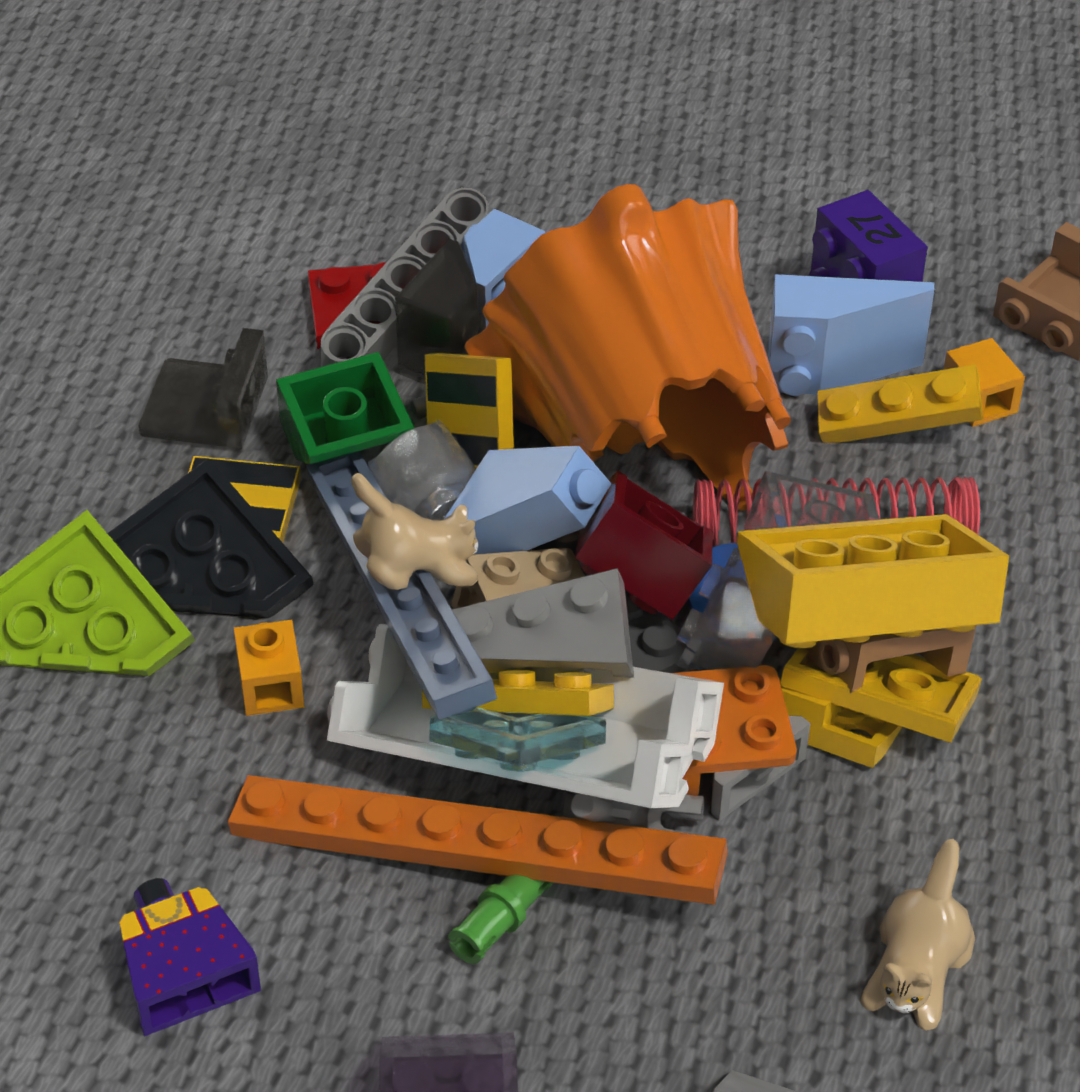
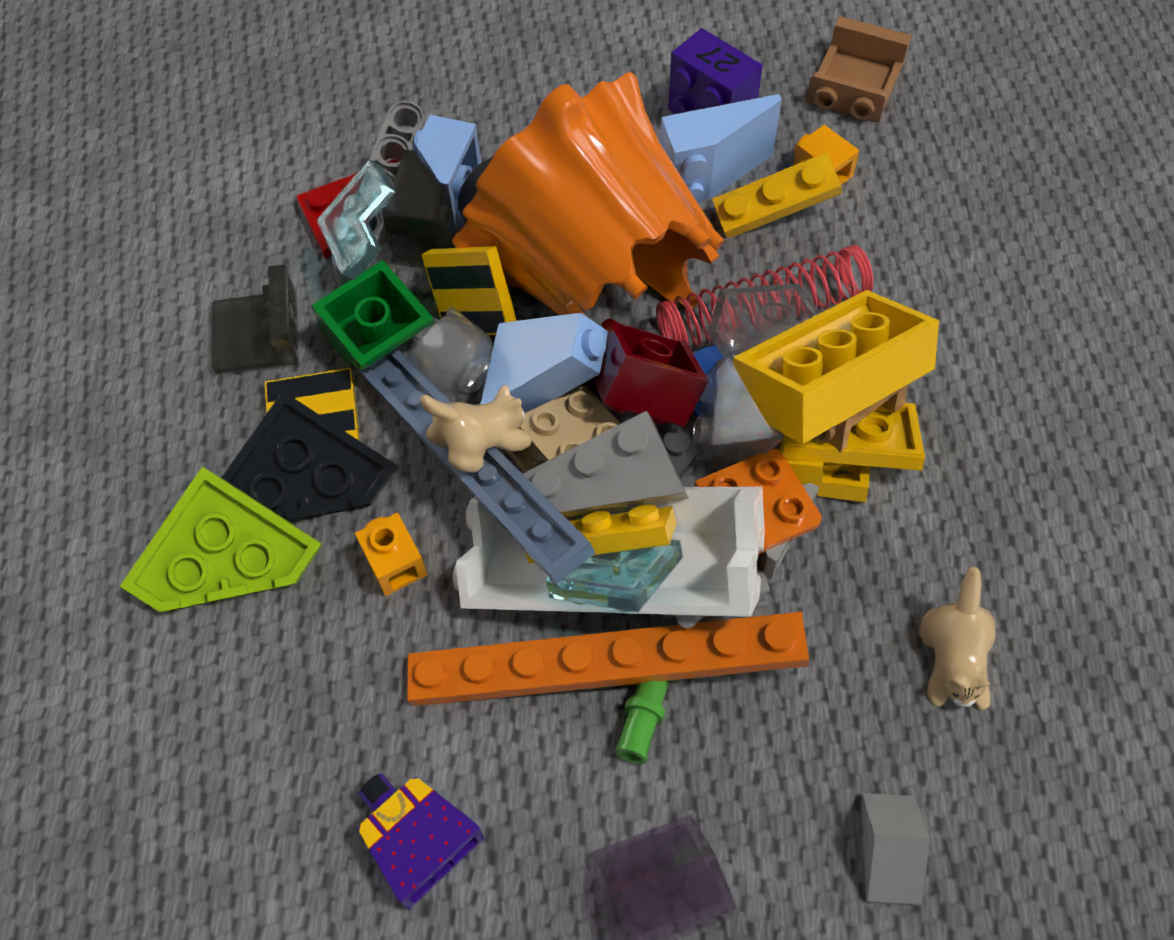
camera: 15 degrees left, 15 degrees up
(350, 300) = (348, 218): none -> clear light blue plate

